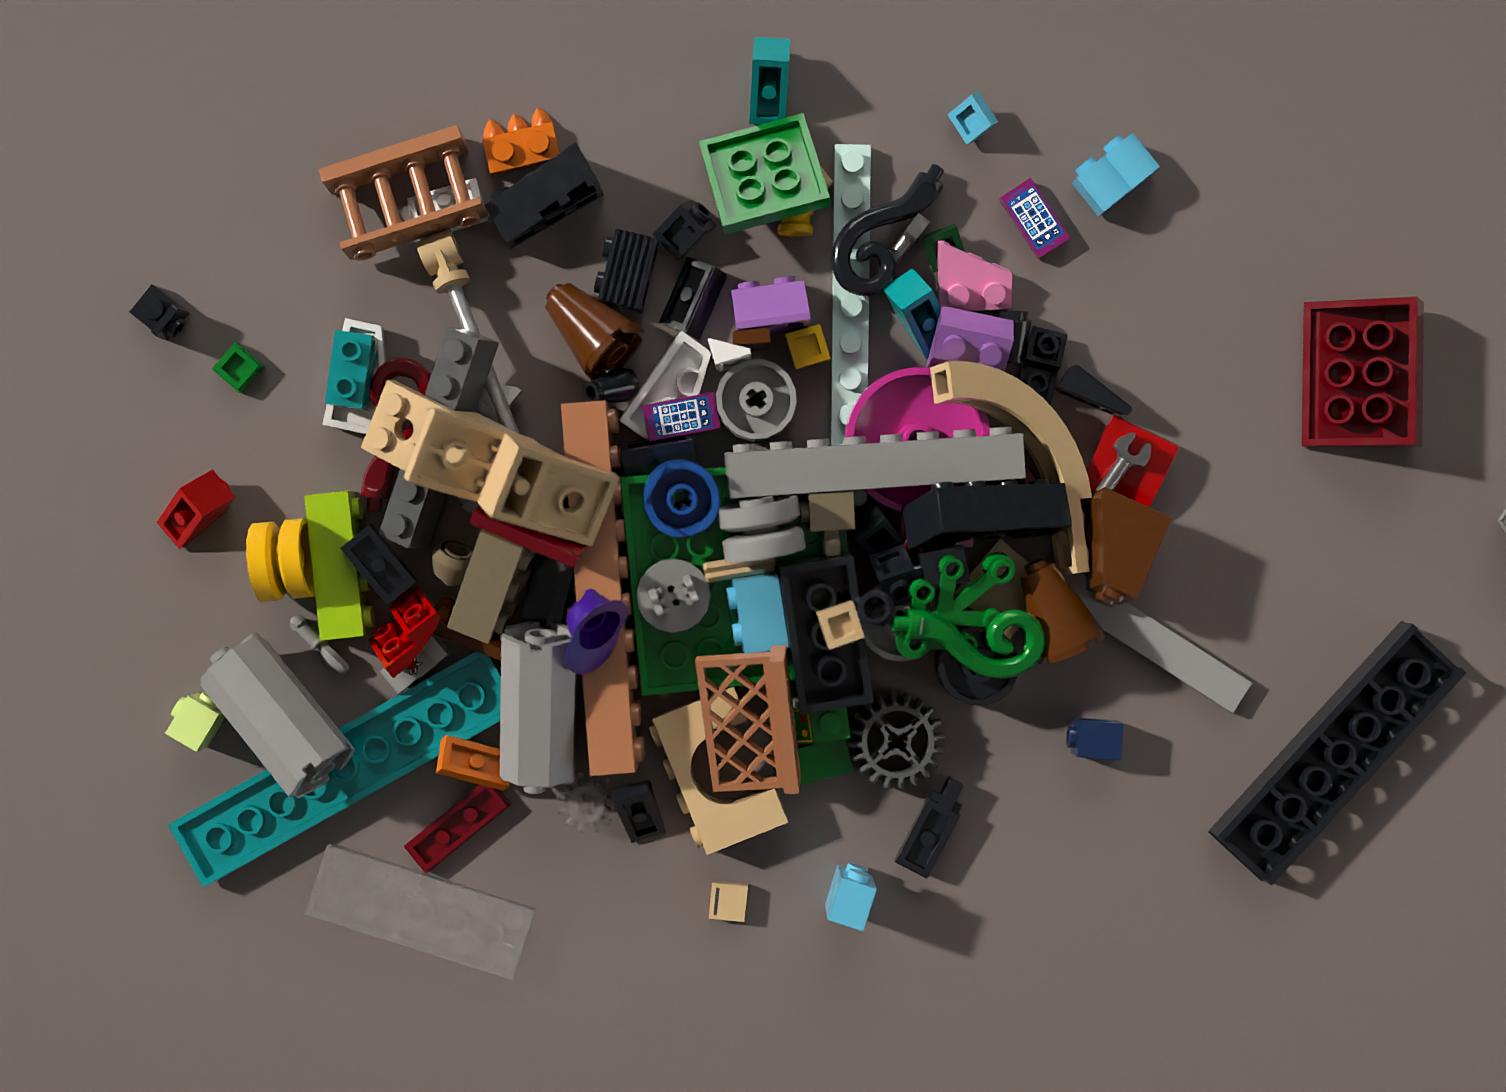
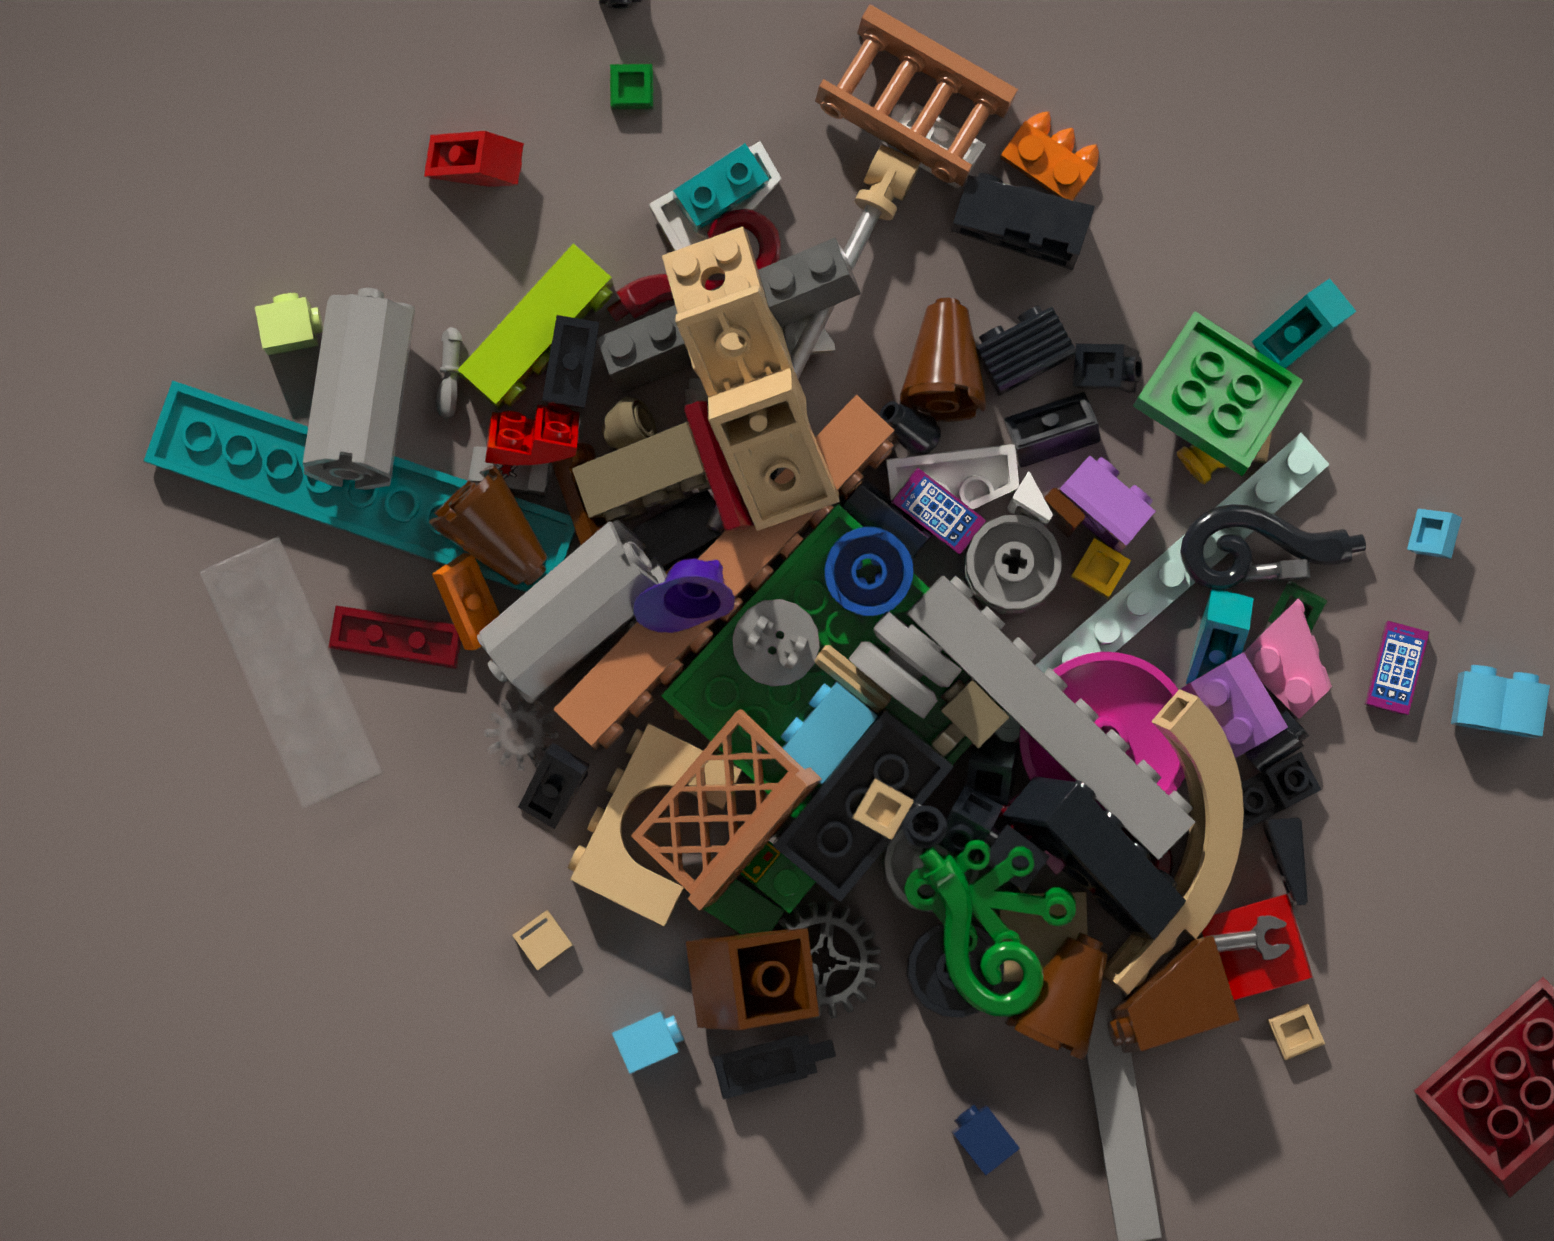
camera: 45 degrees right, 5 degrees down
(280, 560) = (498, 273): yellow wheel -> none
(441, 709) = (492, 528): none -> reddish brown cone
(871, 798) = (752, 979): none -> reddish brown slope
(1200, 485) = (1295, 1031): none -> tan tile

